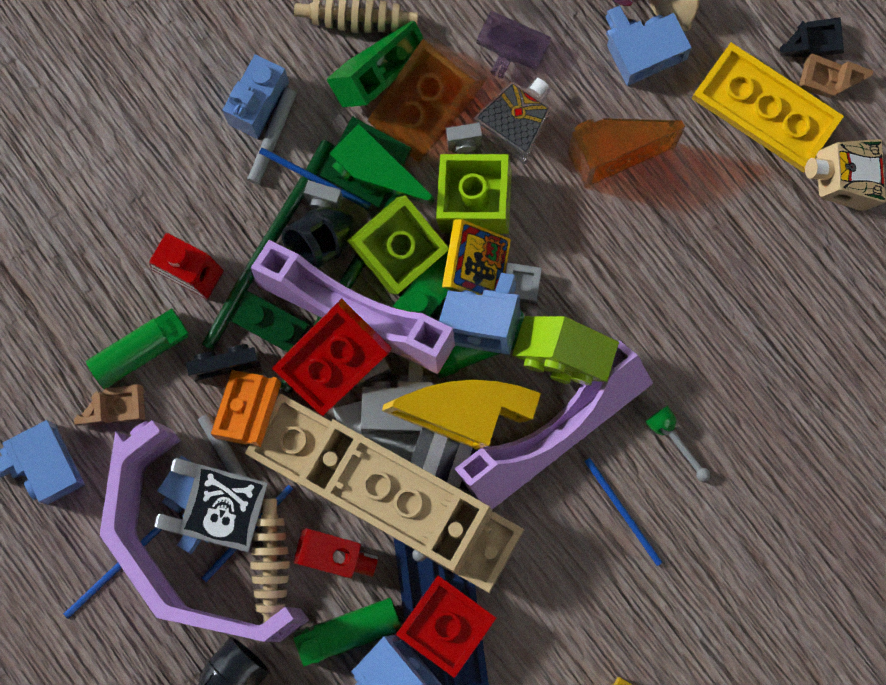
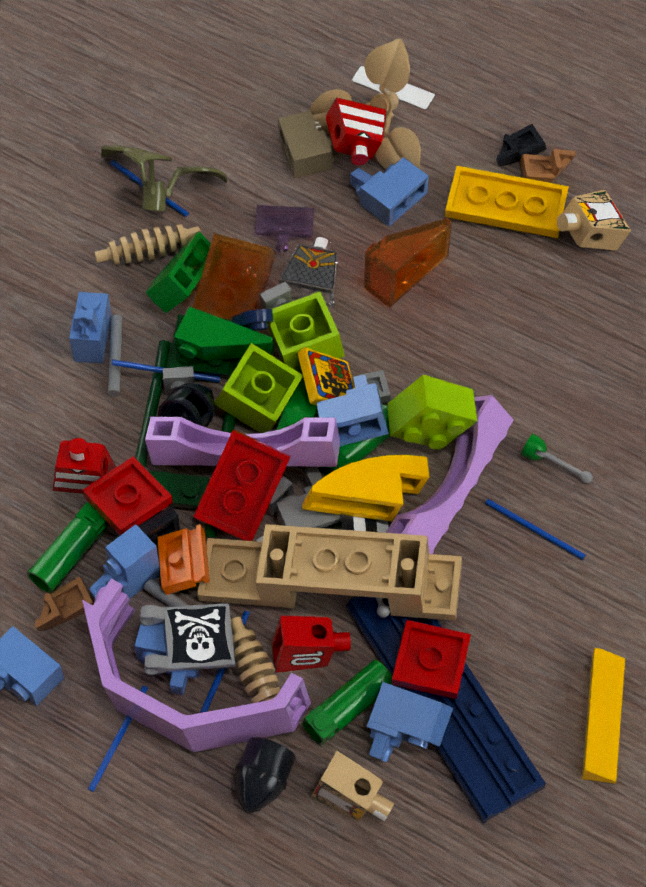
camera: 25 degrees left, 20 degrees down
(182, 398) = (130, 562): none -> medium blue hinge
(212, 320) = (127, 496): none -> red plate
(423, 162) = (254, 319): none -> dark blue plate

